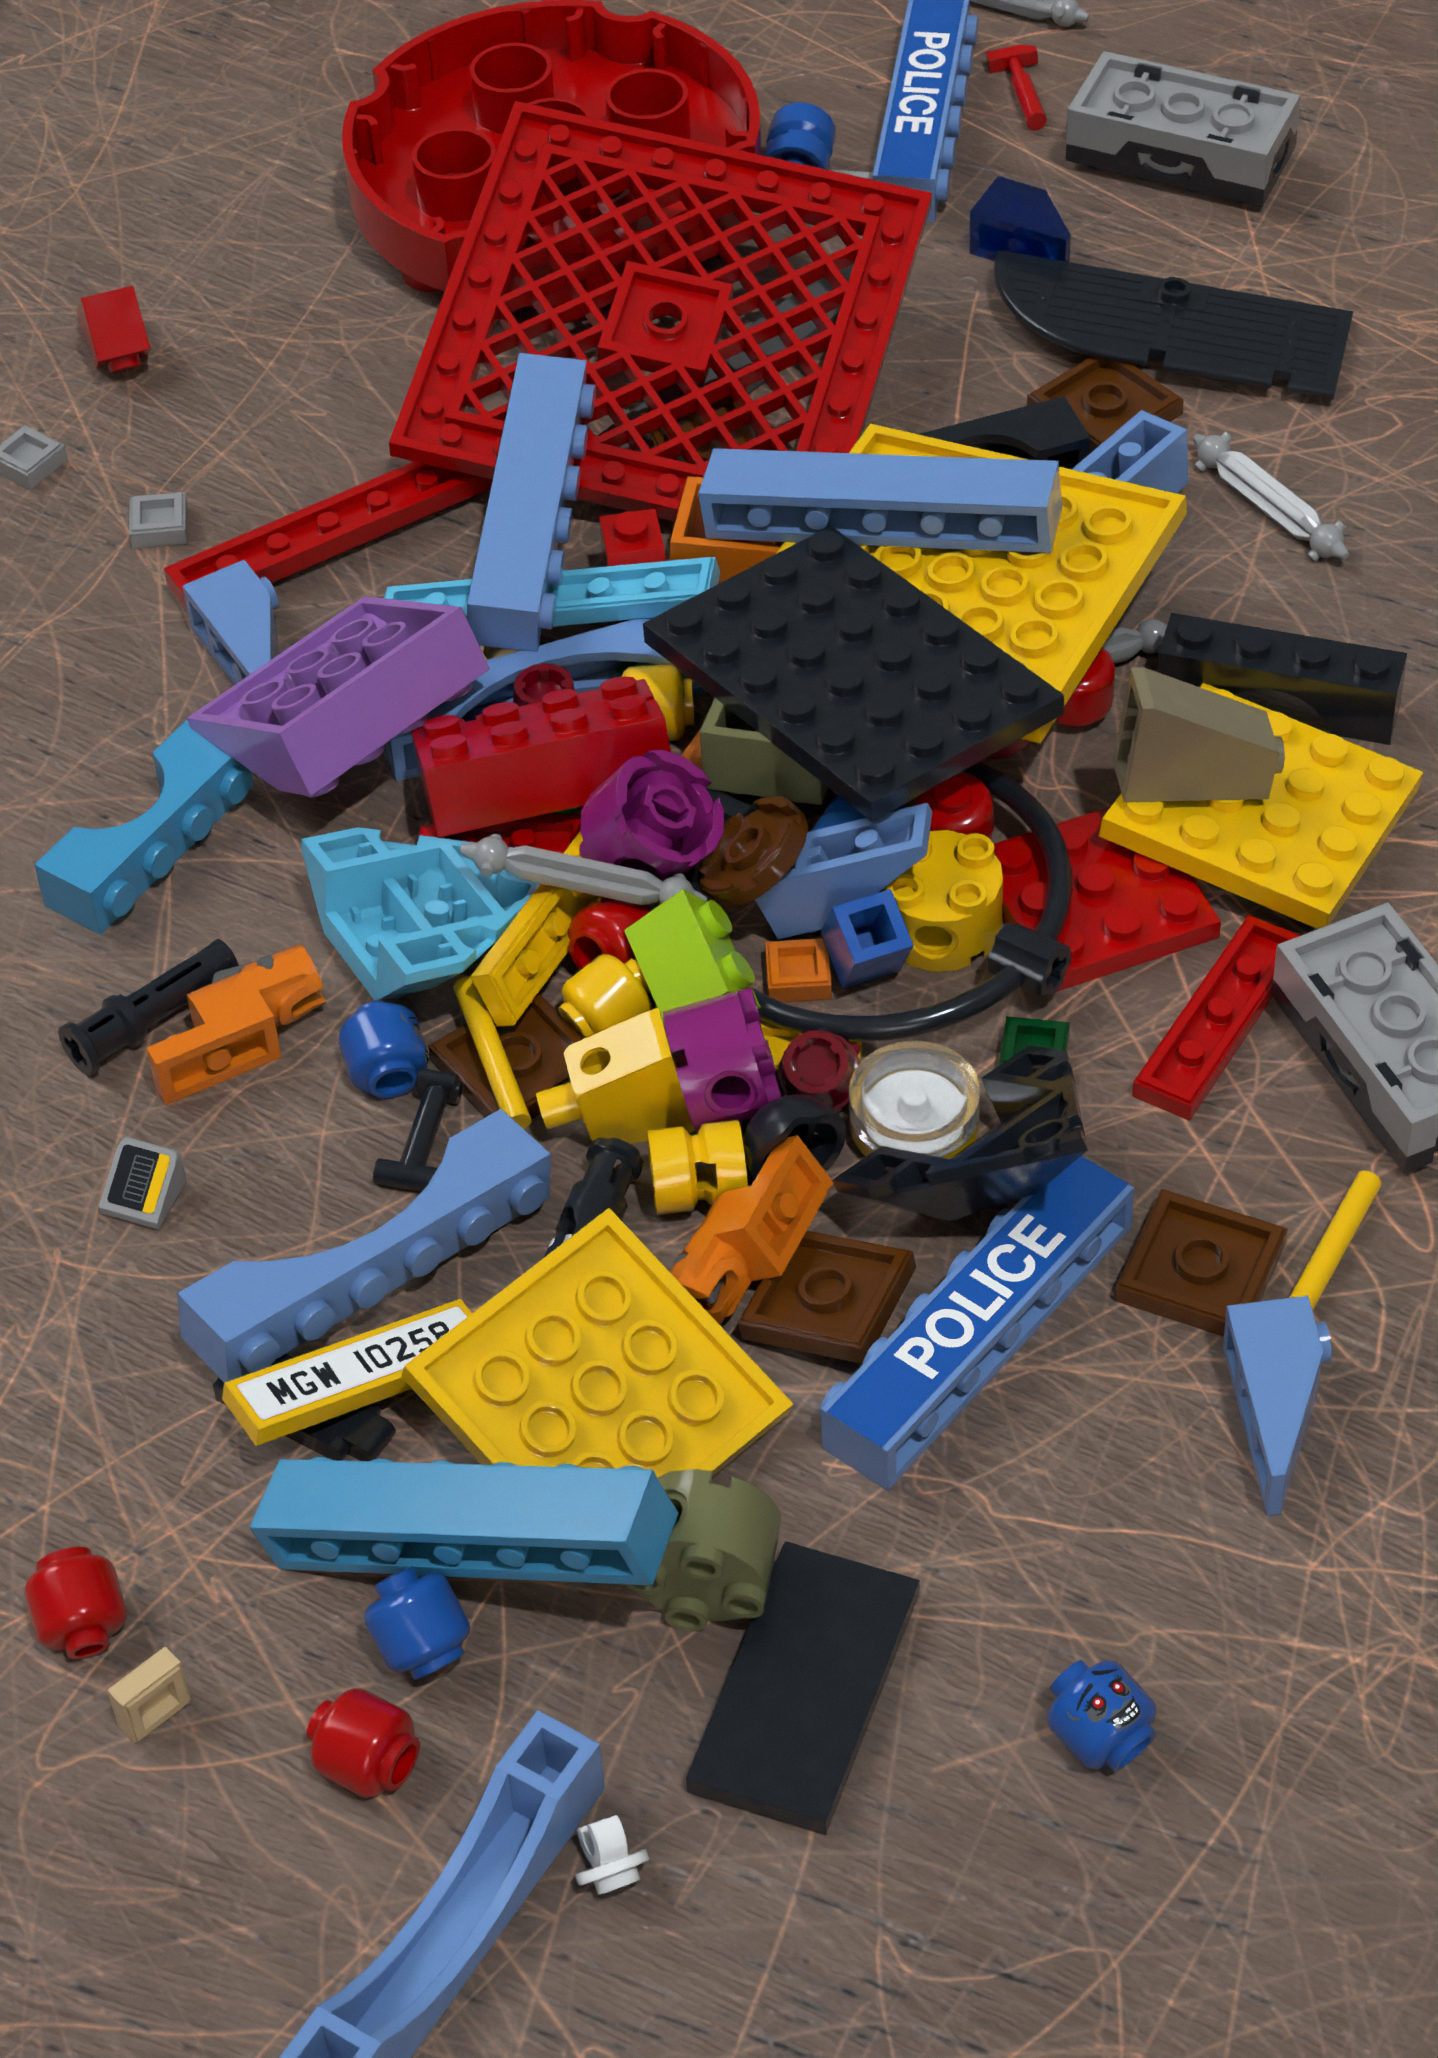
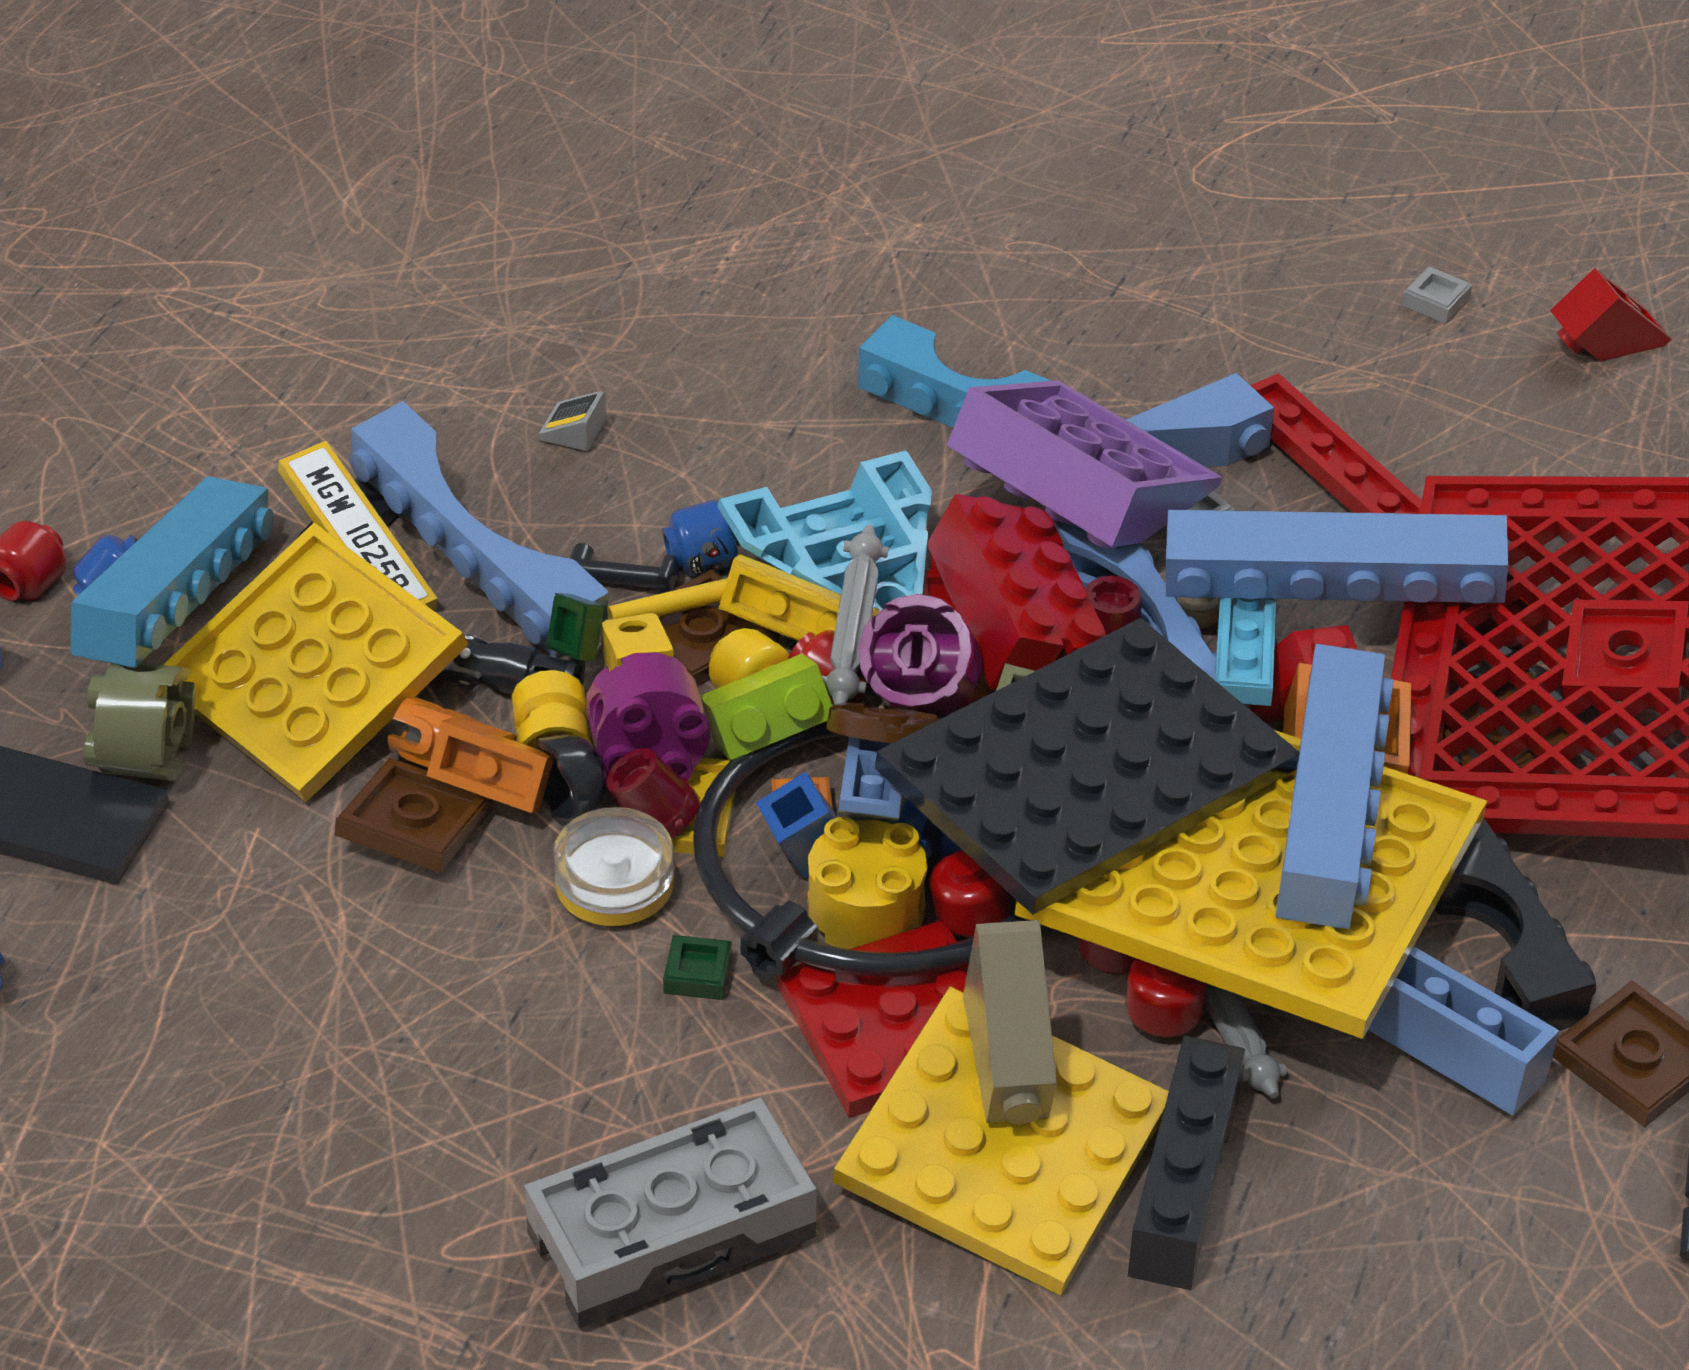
camera: 85 degrees right, 5 degrees down
(75, 1602) = (172, 408): red head -> none
(126, 1018) = (746, 396): black pin -> none
(149, 1695) = (86, 451): tan tile -> none
(158, 520) = (1362, 378): light grey tile -> none
(236, 1023) = (737, 451): orange plate -> none
(571, 1127) = (575, 626): none -> dark green tile
(974, 1321) = (380, 910): brick -> none
(1017, 1158) = (484, 868): black wedge -> none
(1199, 1261) = (433, 1077): reddish brown tile -> none
(1213, 1022) = (703, 1087): red tile -> none
(1271, 496) = (1497, 1184): light grey wheel -> none
(1275, 1372) = (267, 1107): medium blue slope -> none
(1337, 1237) = (439, 1170): yellow bar -> none

